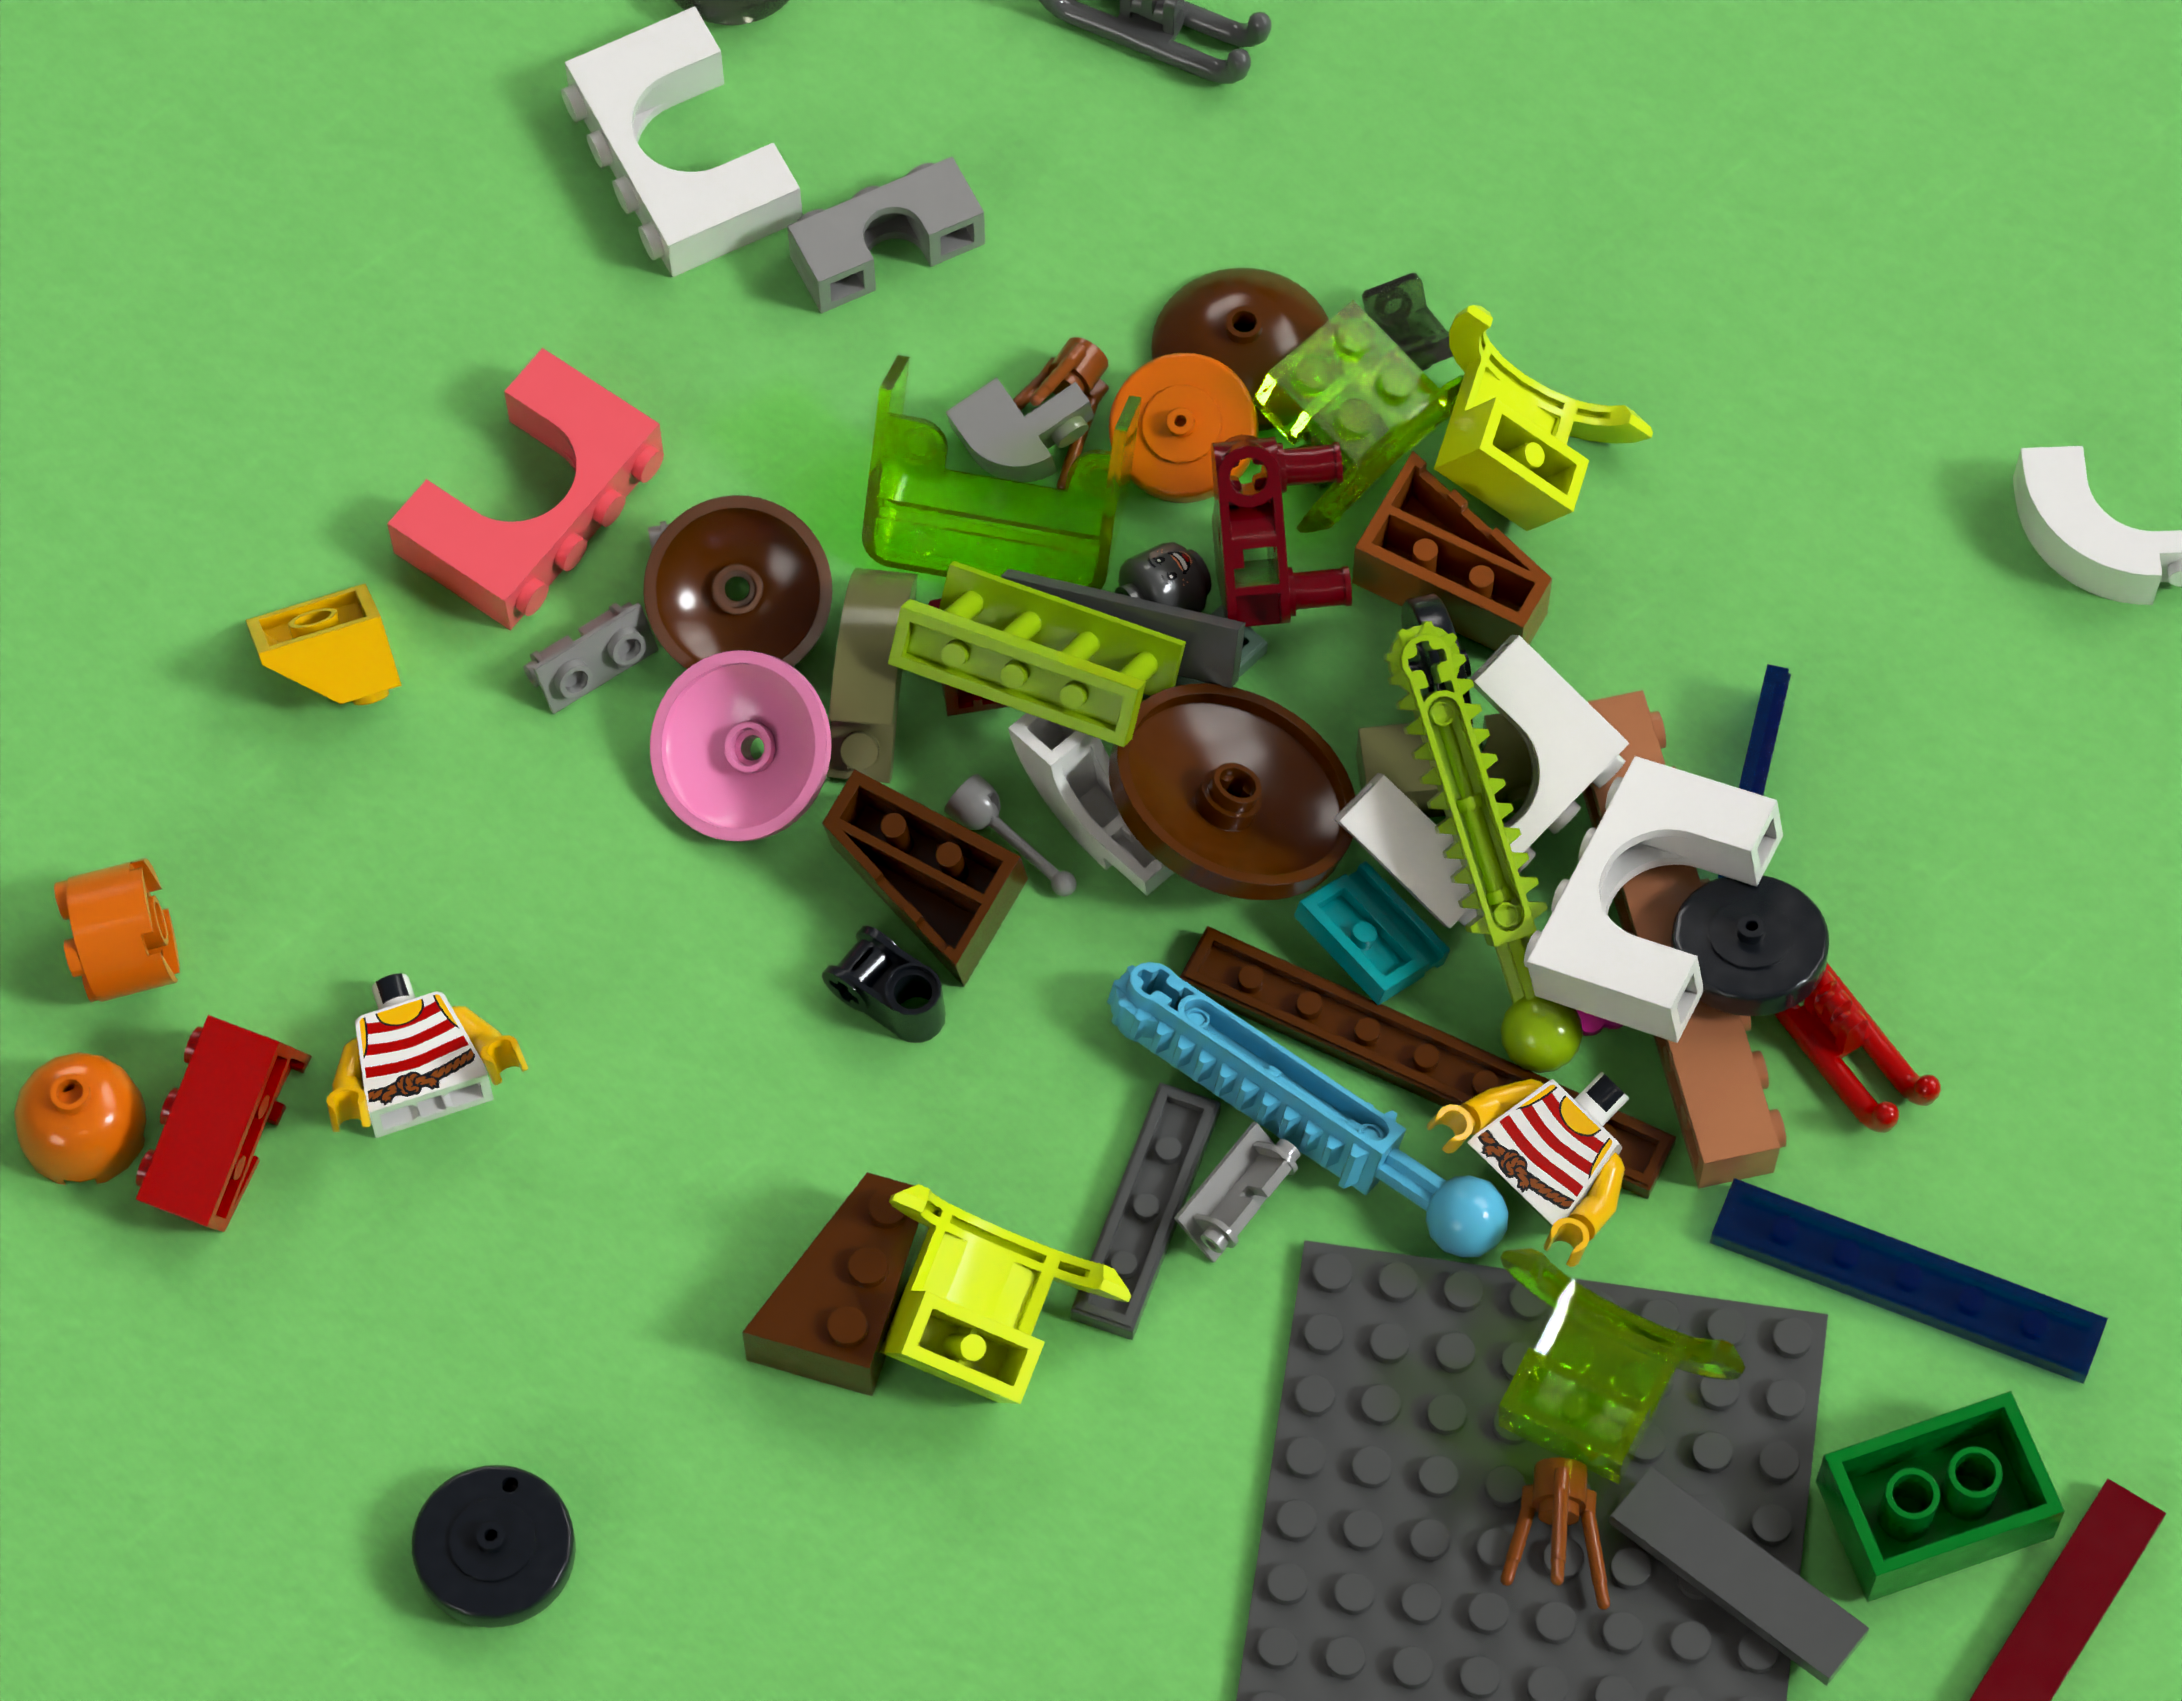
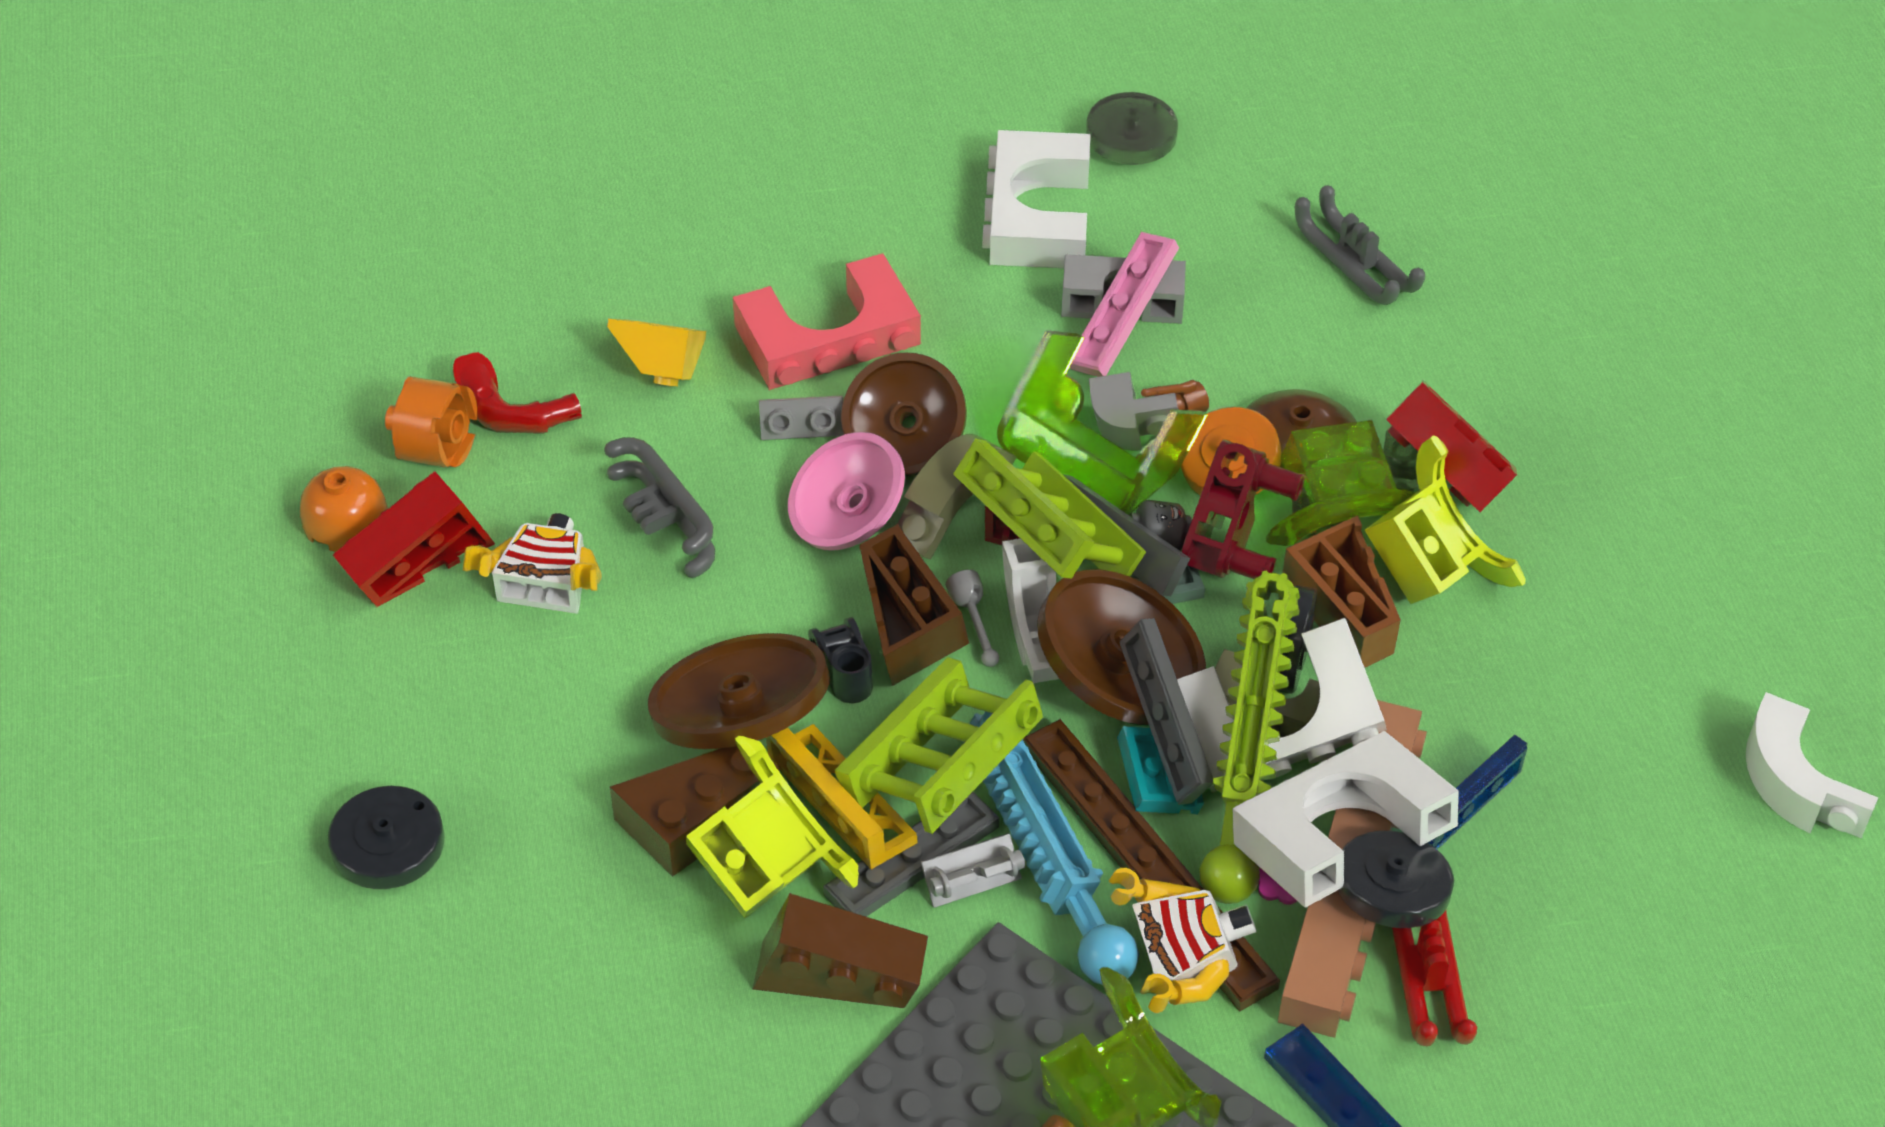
camera: 30 degrees right, 15 degrees down
(120, 832) = (496, 414): none -> red piece
(505, 880) = (663, 501): none -> dark grey piece
(803, 1110) = (738, 689): none -> reddish brown dish
(912, 262) = (1123, 303): none -> bright pink tile
(1009, 1189) = (843, 813): none -> yellow fence
(1058, 1025) = (916, 721): none -> lime fence
(1158, 1396) = (839, 956): none -> reddish brown wedge
(1352, 860) = (1166, 711): none -> dark grey tile
(1447, 272) = (1472, 464): none -> red wedge

